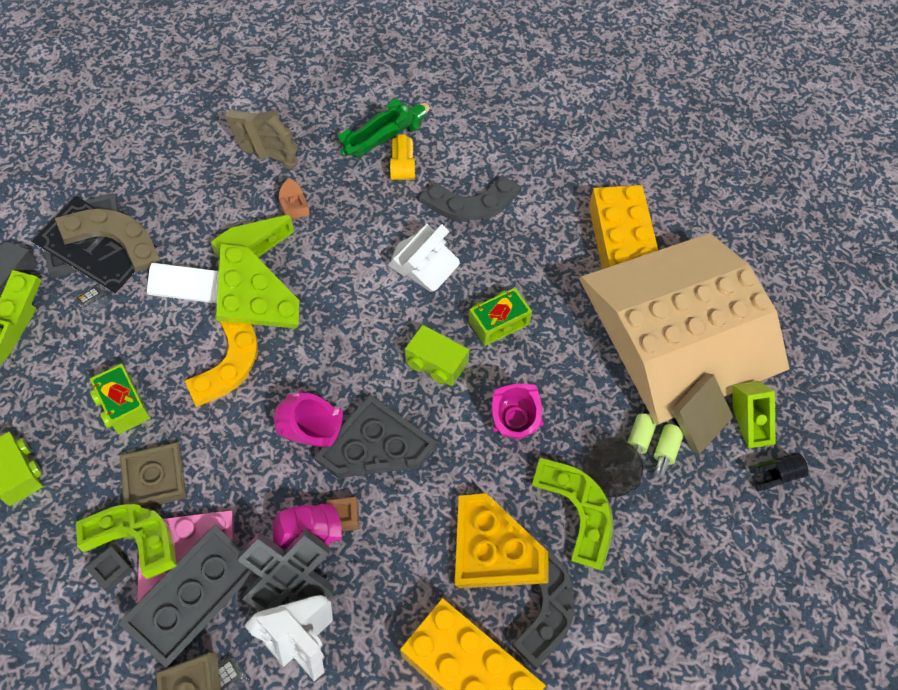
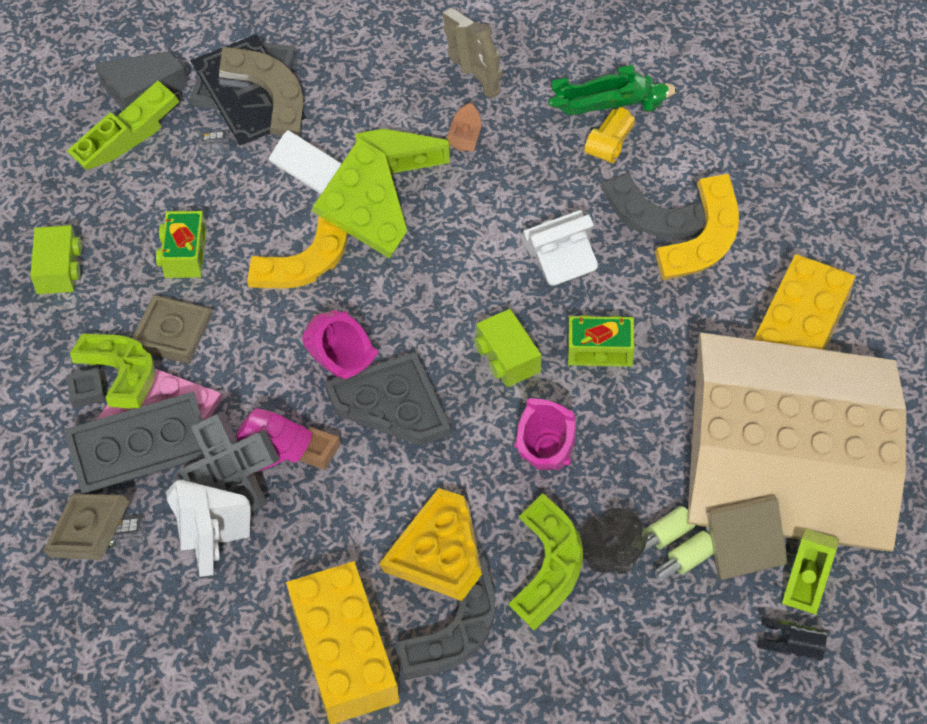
camera: 35 degrees right, 5 degrees down
(525, 198) = (714, 241): none -> yellow plate

